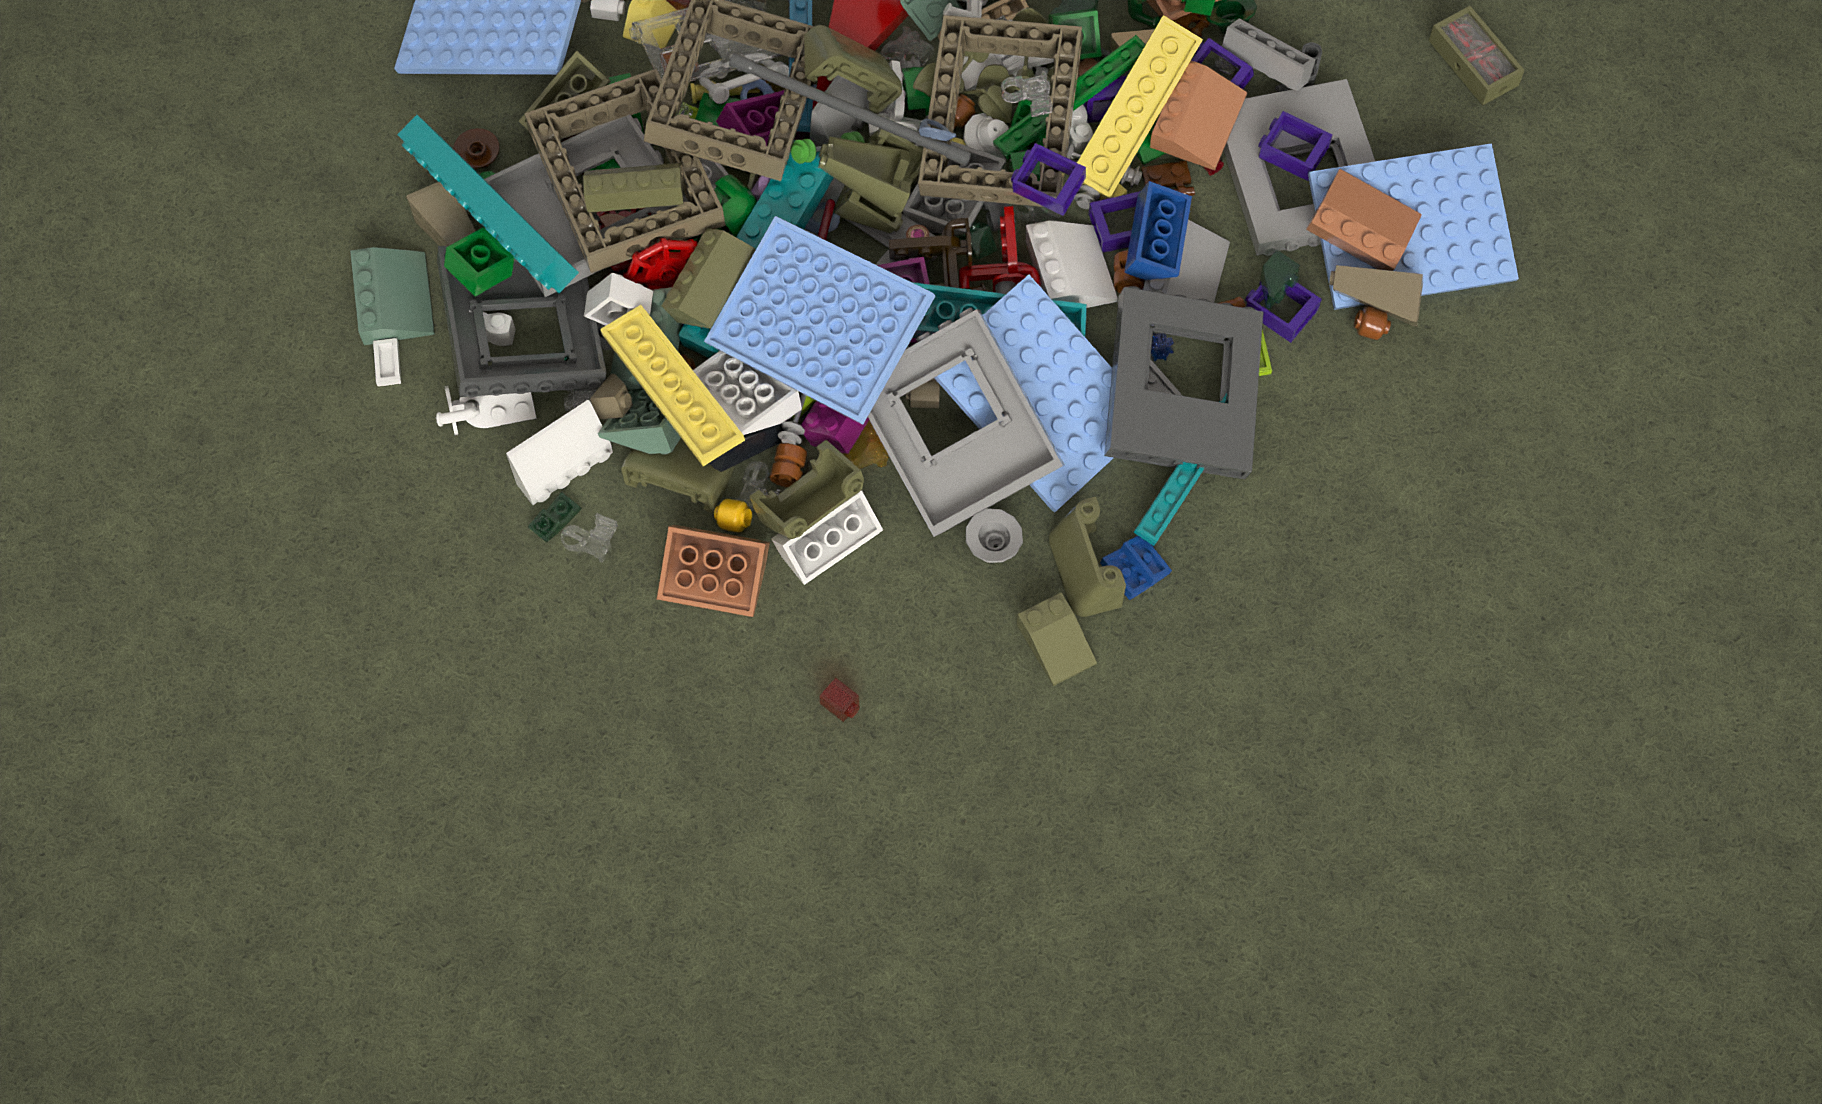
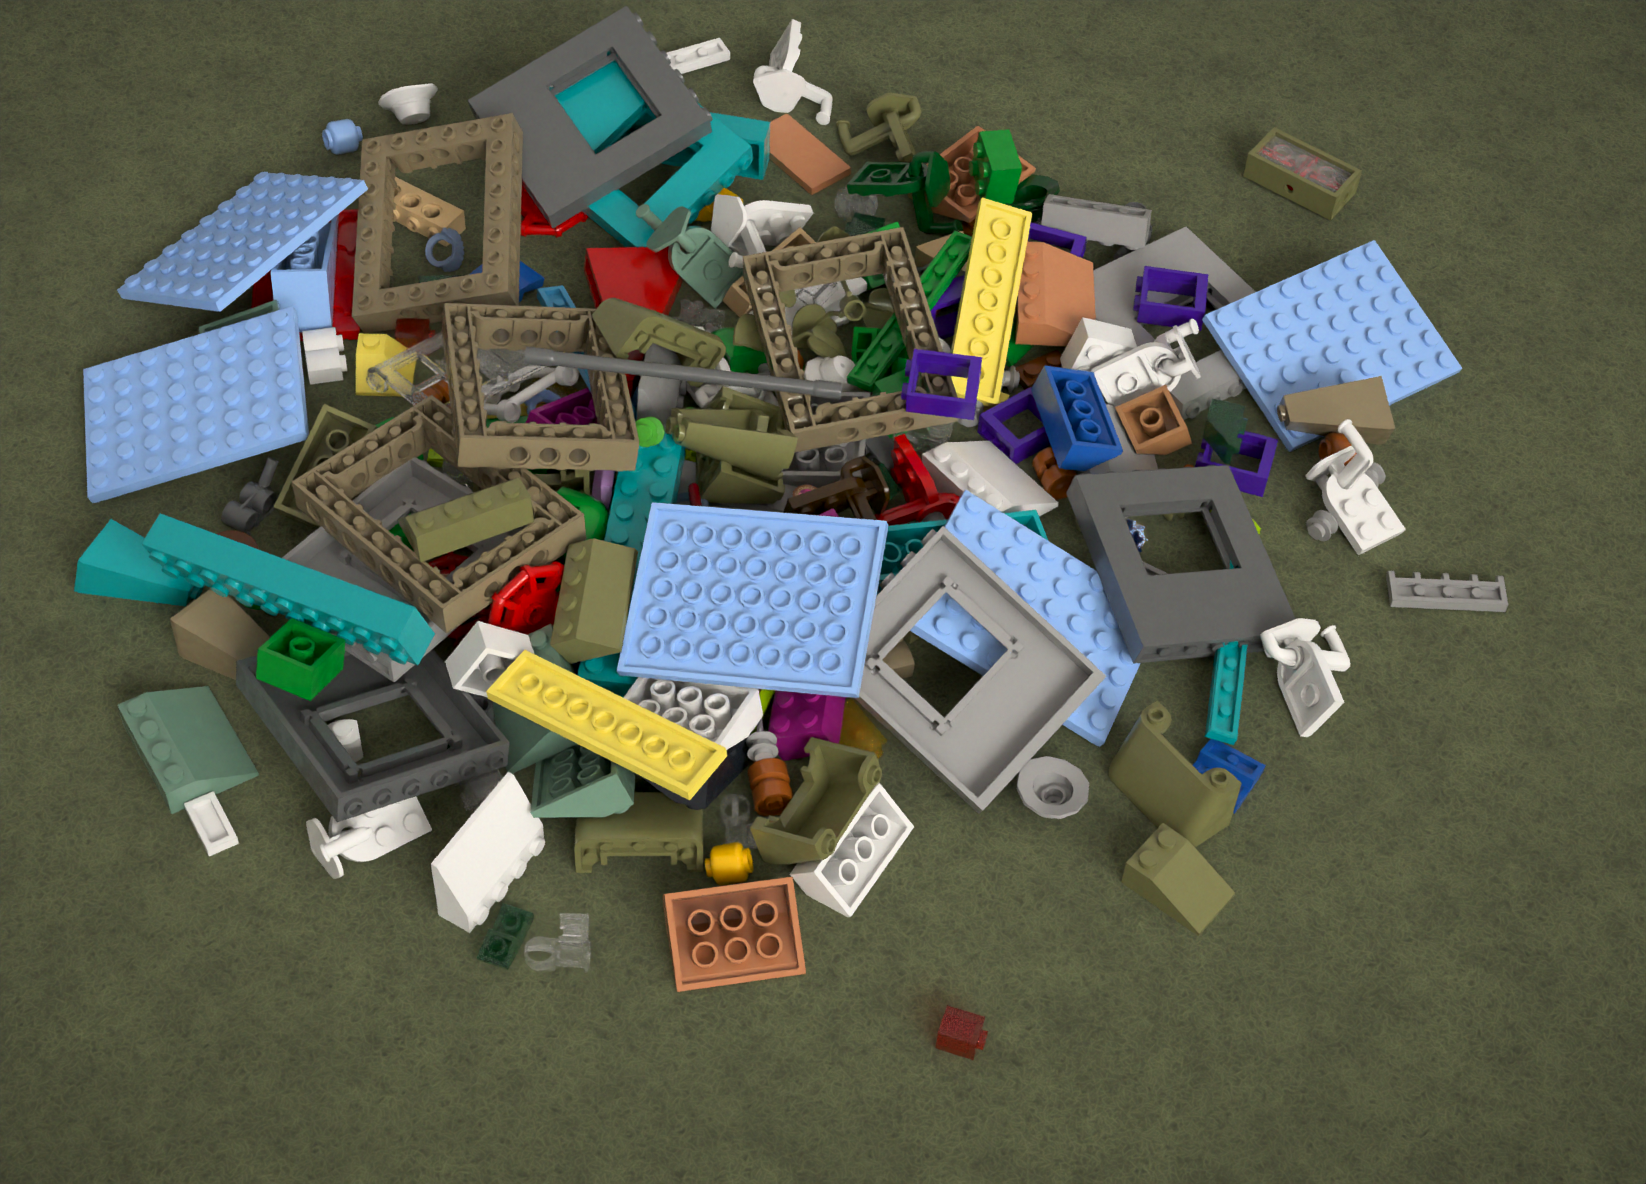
camera: 25 degrees left, 15 degrees down
(381, 136) = (121, 568): none -> teal slope
(513, 109) = (255, 502): none -> dark grey beam
(611, 399) = (530, 768): dark tan slope -> none
(943, 134) = (784, 370): sand blue piece -> none
(1035, 88) = (882, 297): clear piece -> none
(1210, 178) = (1095, 344): none -> white brick
(1228, 253) = (1154, 423): none -> medium nougat slope
(1234, 508) = (1306, 670): none -> white plate
(1243, 207) = (1147, 366): none -> white plate
(1358, 383) = (1353, 495): none -> white plate
(1364, 222) = (1286, 349): nougat slope -> none
(1380, 354) = (1324, 524): none -> light grey axle
(1393, 474) = (1447, 593): none -> light grey hinge

